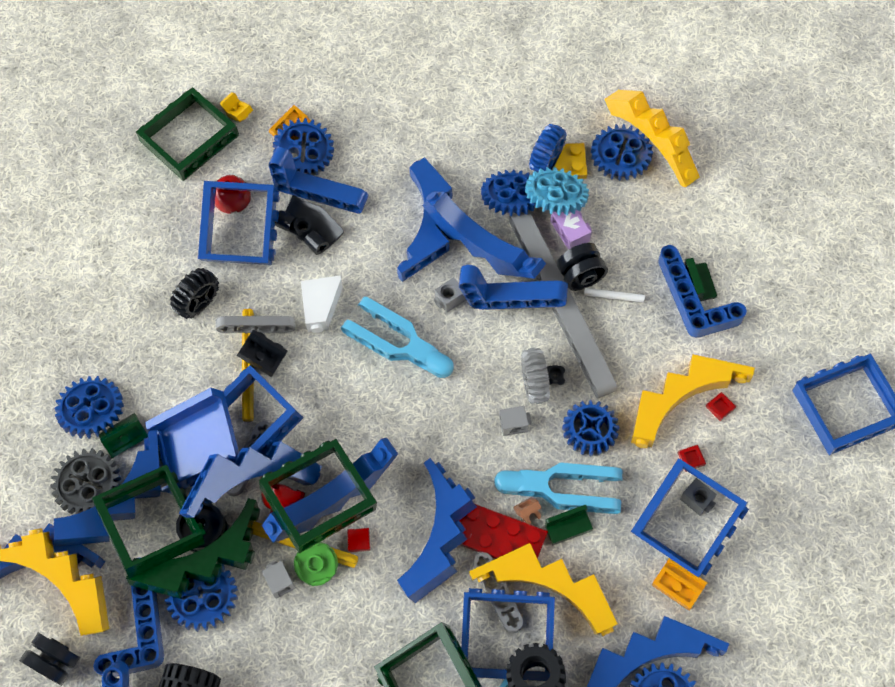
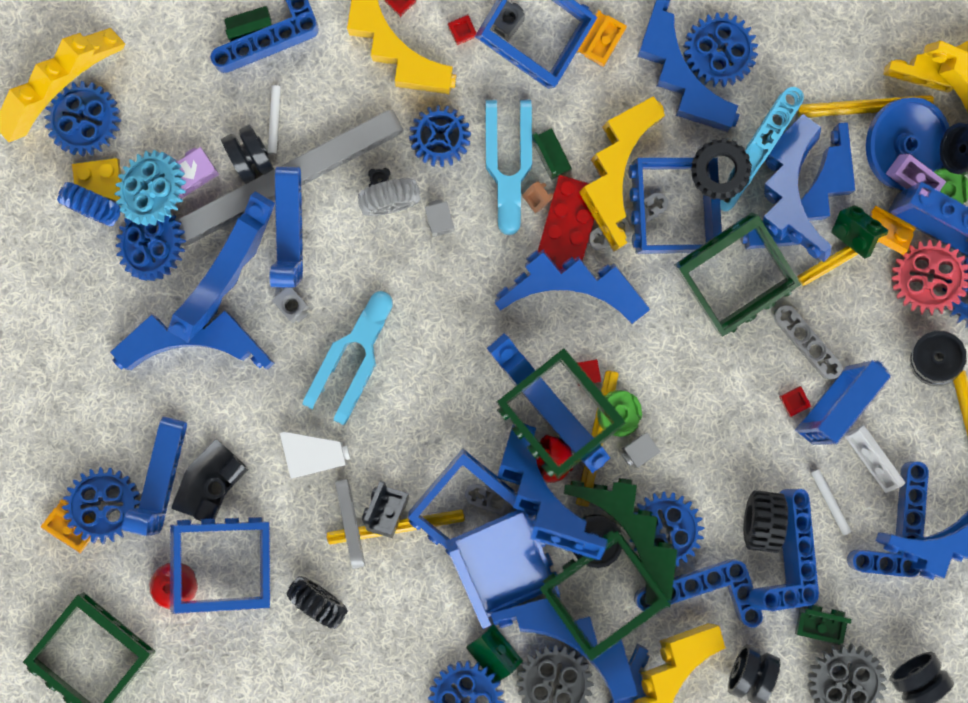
camera: 100 degrees left, 20 degrees up
(235, 108) = (48, 601): yellow bracket -> none

